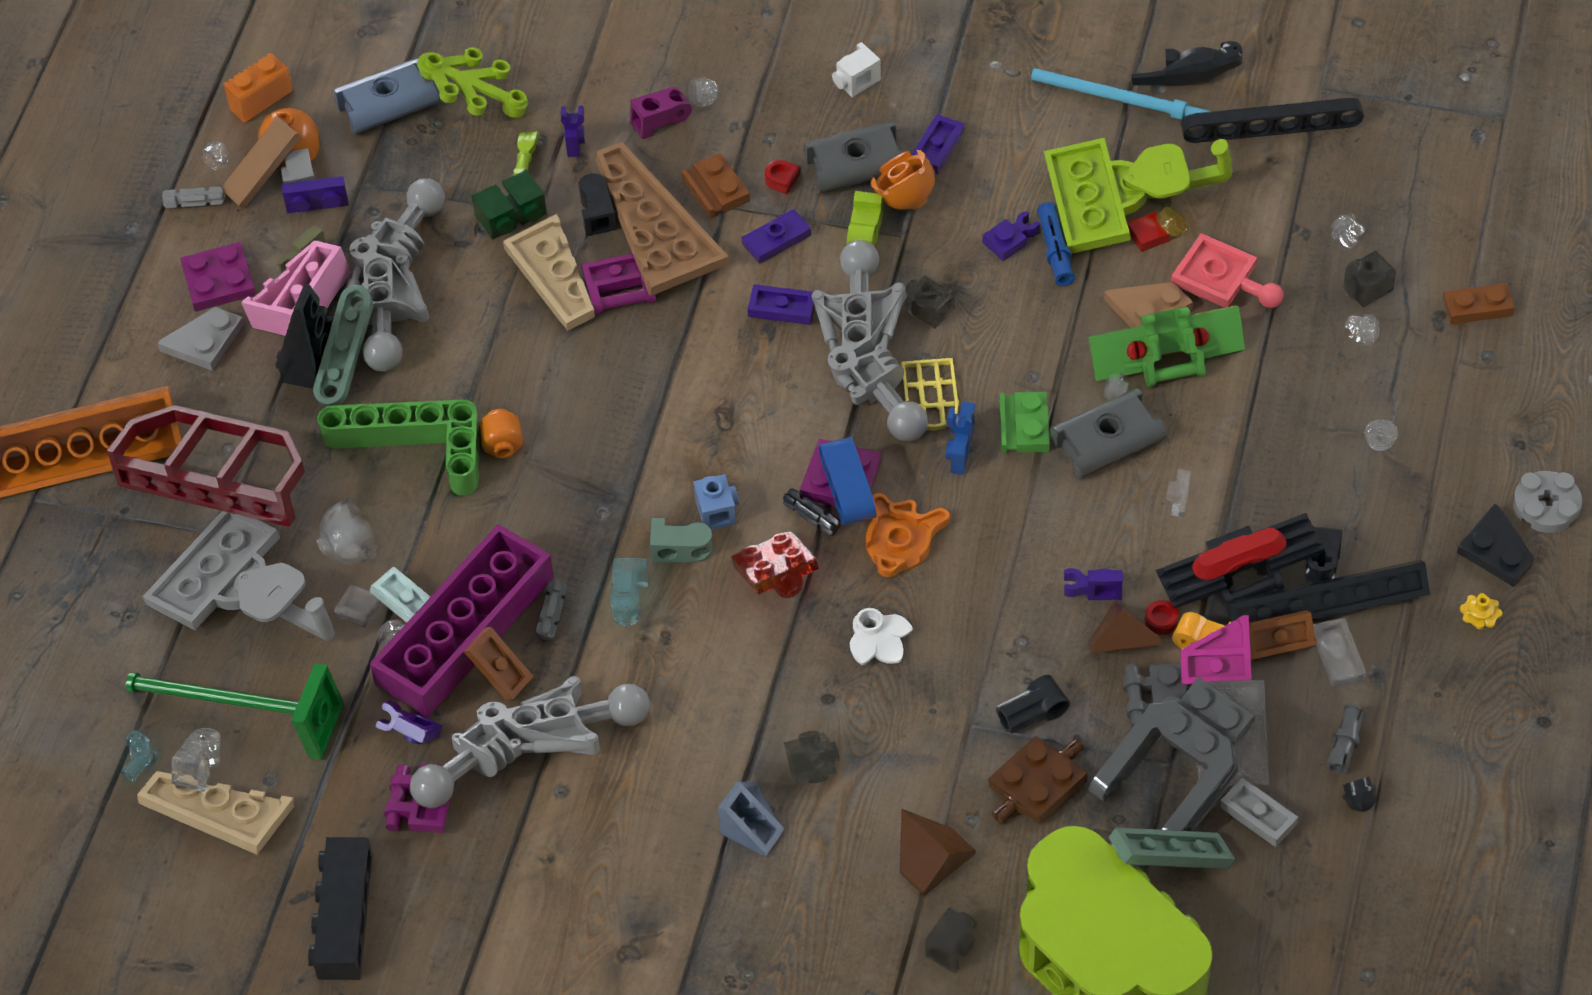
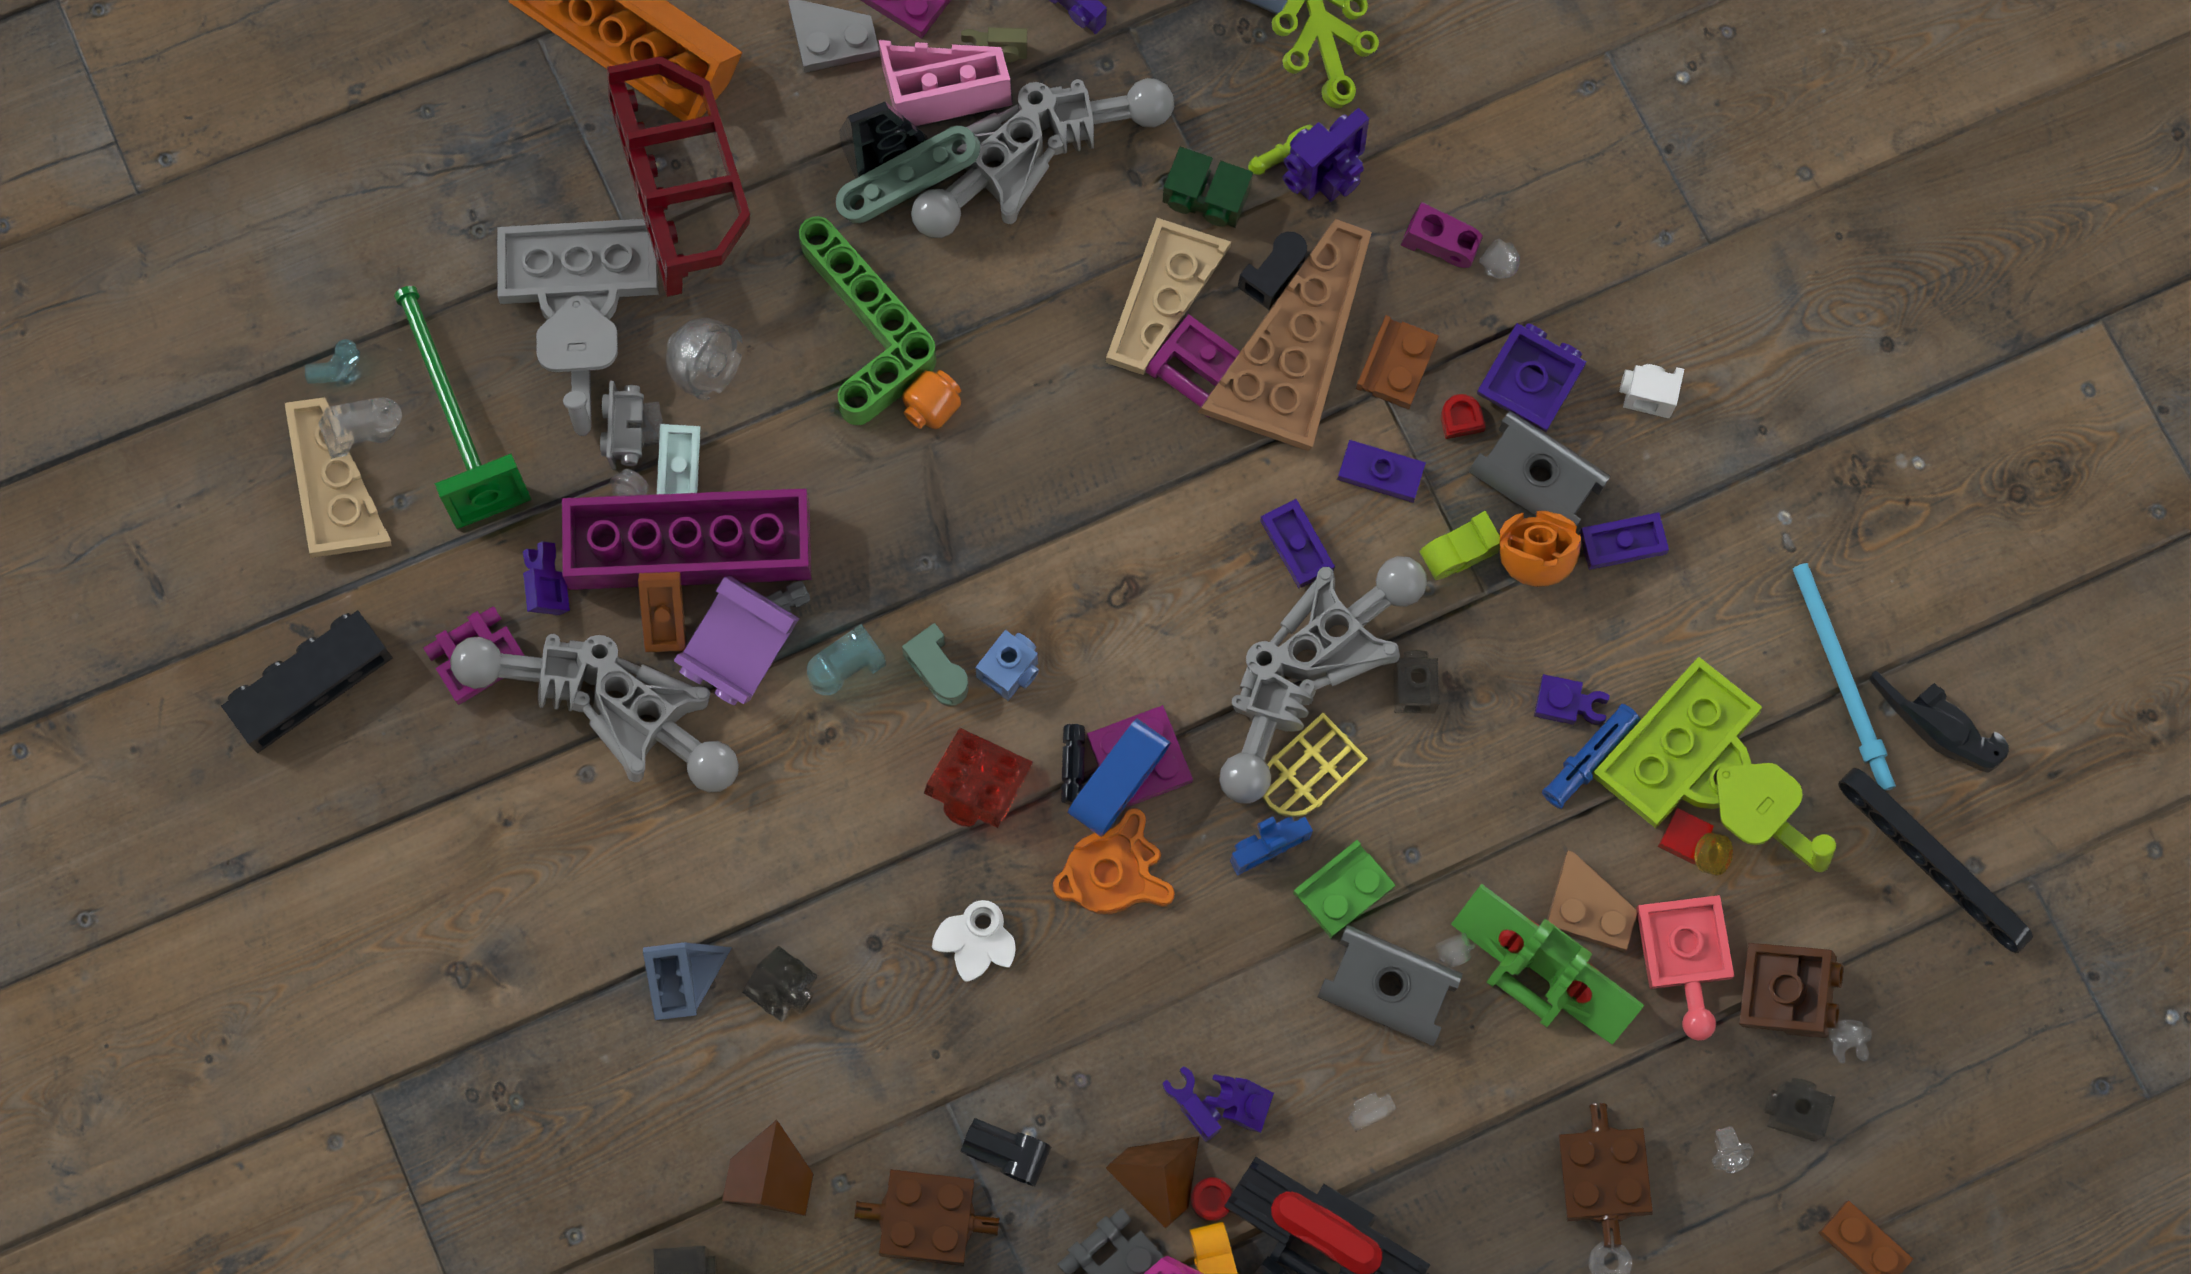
camera: 45 degrees right, 20 degrees up
(355, 622) = (619, 441): none -> light grey hinge
(548, 128) = (1313, 151): none -> dark purple plate
(556, 634) = (736, 641): none -> medium lavender panel
(791, 118) = (1532, 376): none -> dark purple plate
(1115, 552) = (1243, 1102): none -> dark purple plate
(1290, 235) = (1791, 990): none -> reddish brown plate
(1324, 399) = (1605, 1175): none -> reddish brown plate

